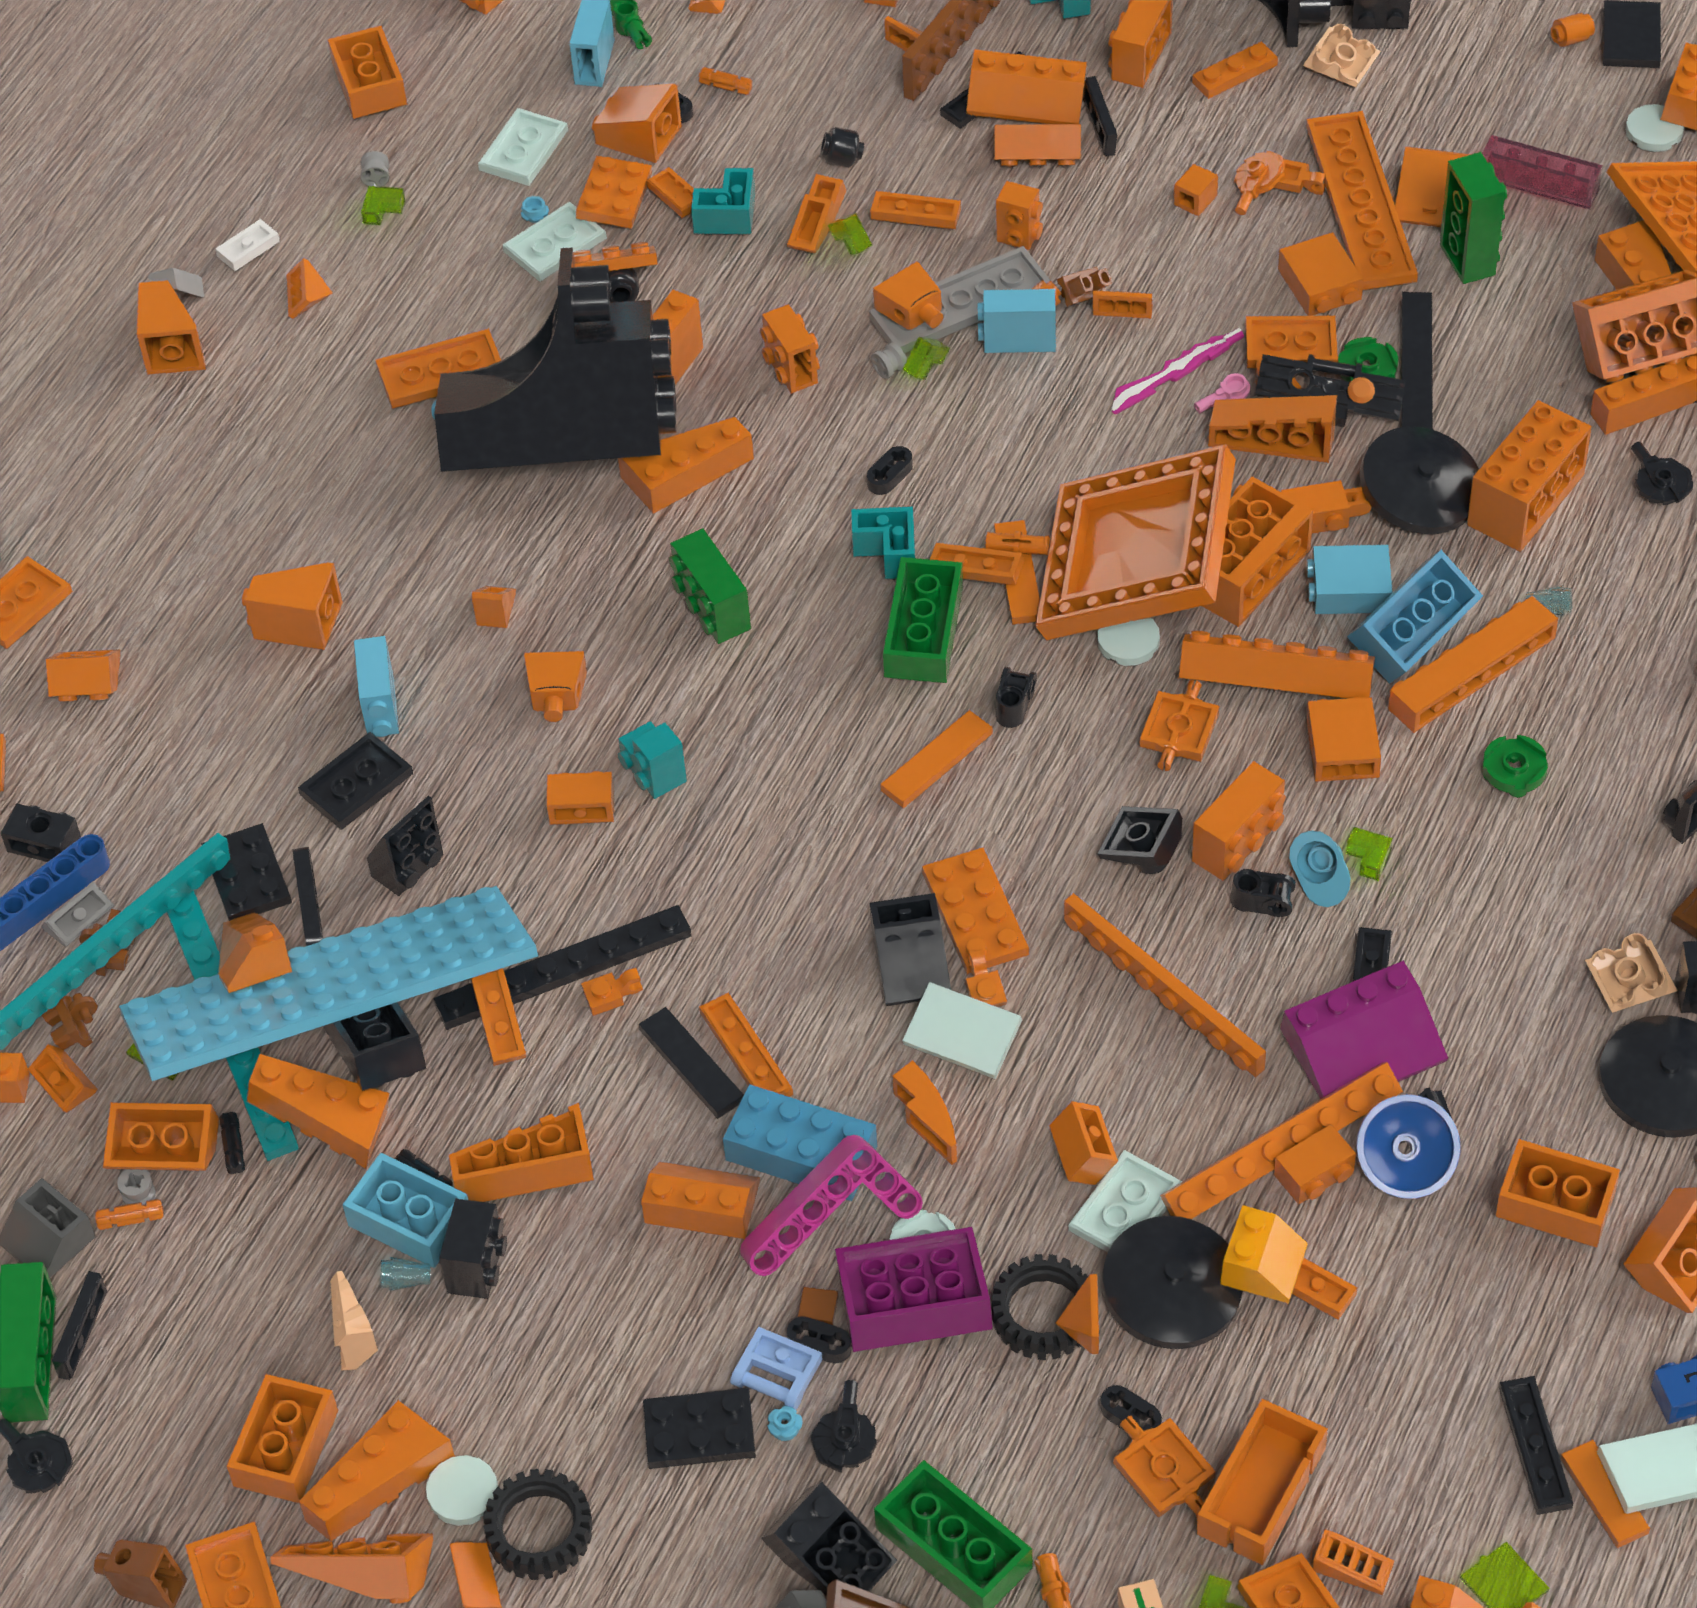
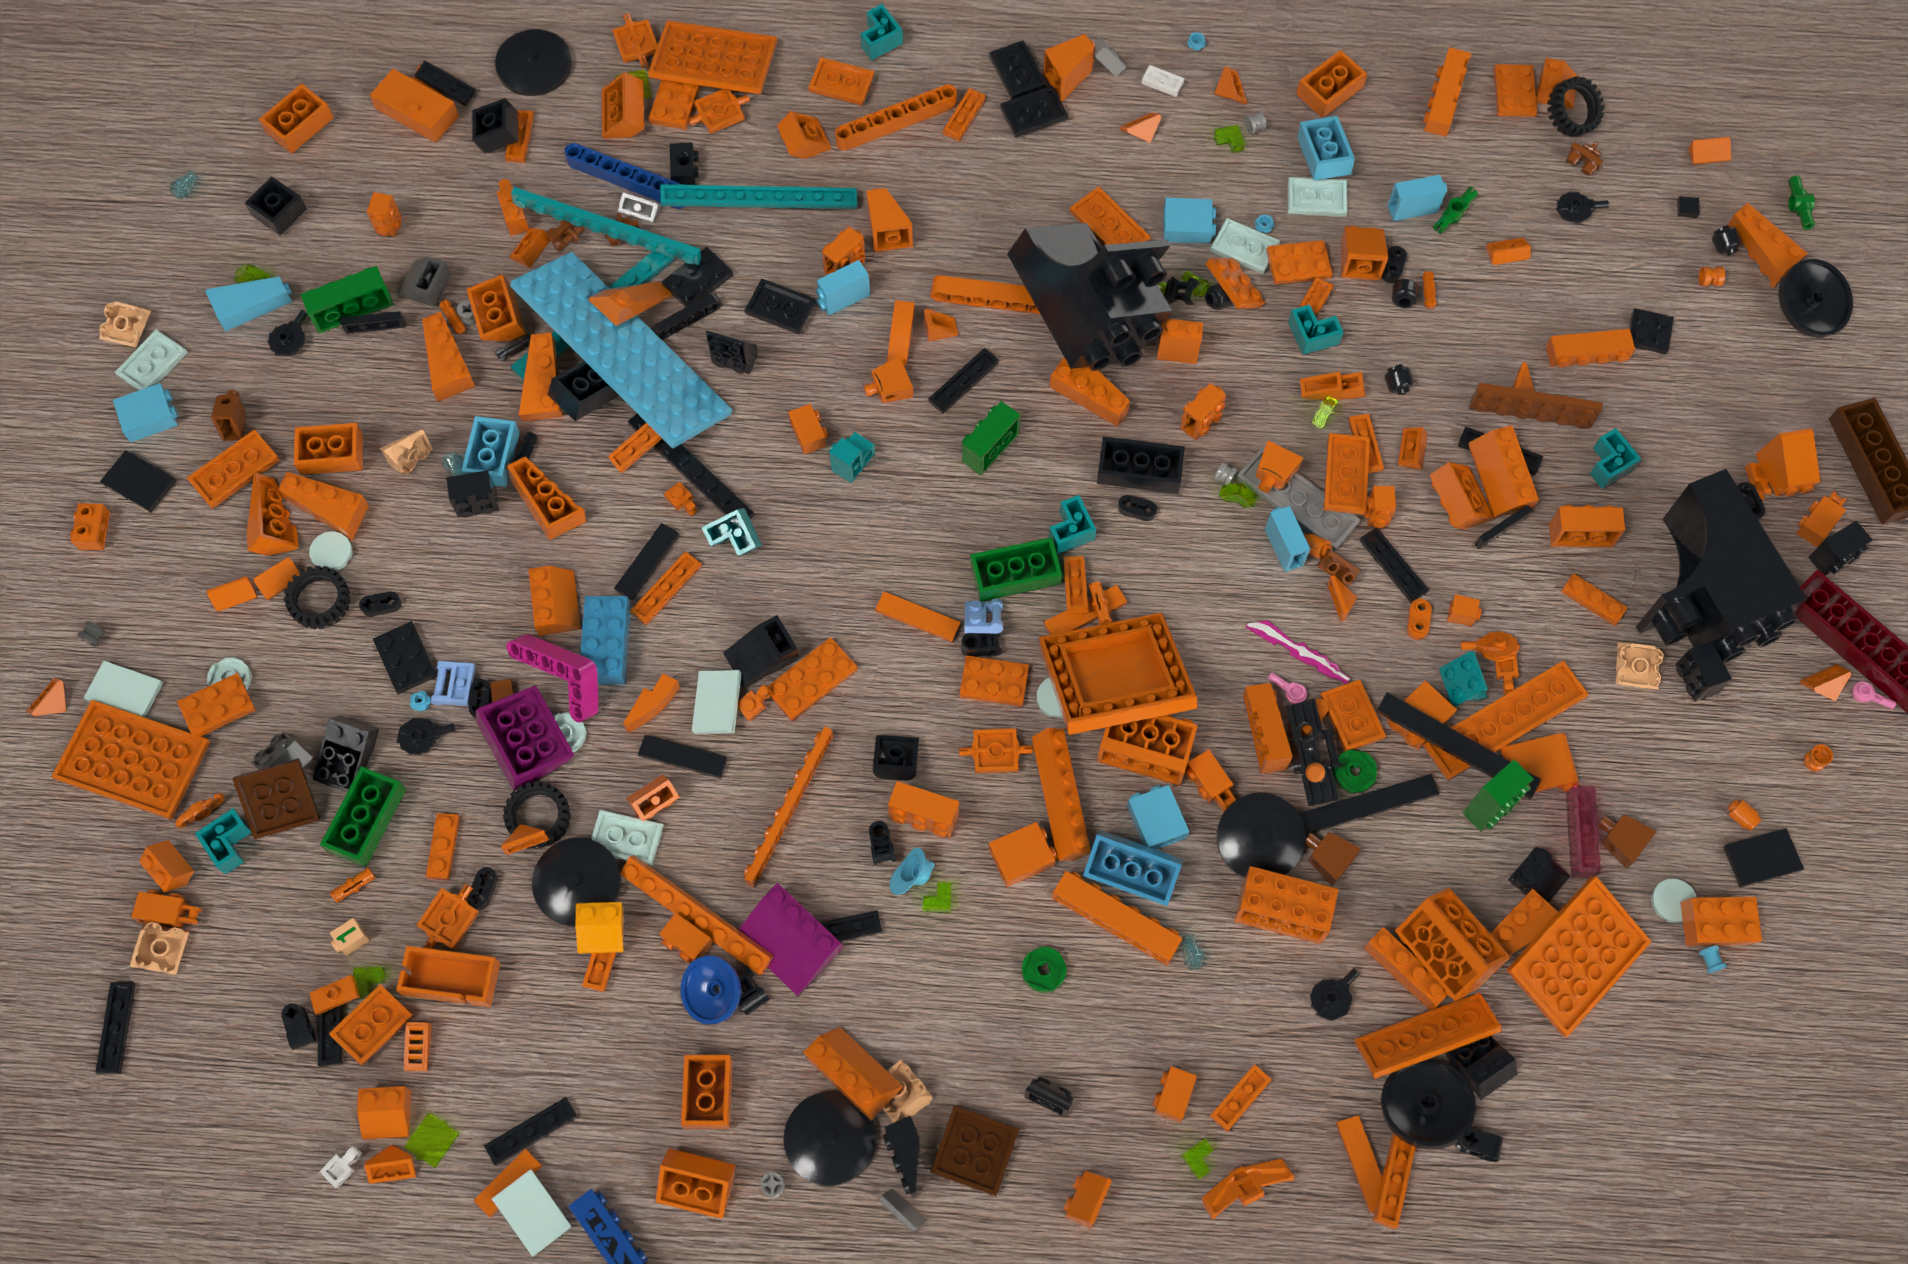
camera: 65 degrees right, 15 degrees up
(121, 555) = (884, 121): none -> orange beam
(128, 395) = (1017, 69): none -> black plate
(159, 750) = (758, 196): none -> teal plate
(161, 479) = (964, 114): none -> orange tile
(202, 1235) = (446, 365): none -> orange wedge
(206, 191) = (1196, 37): none -> medium azure plate
(208, 397) = (1033, 111): none -> black plate
(301, 182) = (1231, 86): none -> orange slope
(322, 671) = (843, 250): none -> orange brick
(463, 105) = (1325, 148): none -> medium azure brick
(478, 529) = (982, 294): none -> orange beam
(480, 647) = (901, 330): none -> orange slope
(484, 283) = (1188, 220): none -> medium azure brick
(583, 1438) = (380, 604): none -> black beam
(594, 603) = (963, 380): none -> black tile
(700, 922) = (735, 527): none -> teal brick
(720, 102) = (1404, 293): none -> black head
(833, 440) = (1140, 465): none -> black brick
(942, 169) = (1413, 448): none -> orange slope
(955, 233) = (1346, 473): none -> orange plate
(978, 685) = (976, 616): none -> light blue plate
(1027, 1099) = (682, 756): none -> black tile
(1040, 1452) = (442, 846): none -> orange plate
(1073, 701) = (994, 681): none -> orange plate
(1098, 239) = (1394, 565): none -> black tile
(1185, 239) = (1419, 617): none -> orange plate
(1291, 214) = (1464, 679): none -> teal bracket
(1367, 252) = (1446, 738): none -> black tile
(1476, 419) = (1331, 855): none -> dark orange torso
(1566, 134) = (1625, 838): none -> dark orange torso
(1571, 237) = (1539, 873): none -> black slope
(1590, 1013) = (853, 1071): none -> orange slope

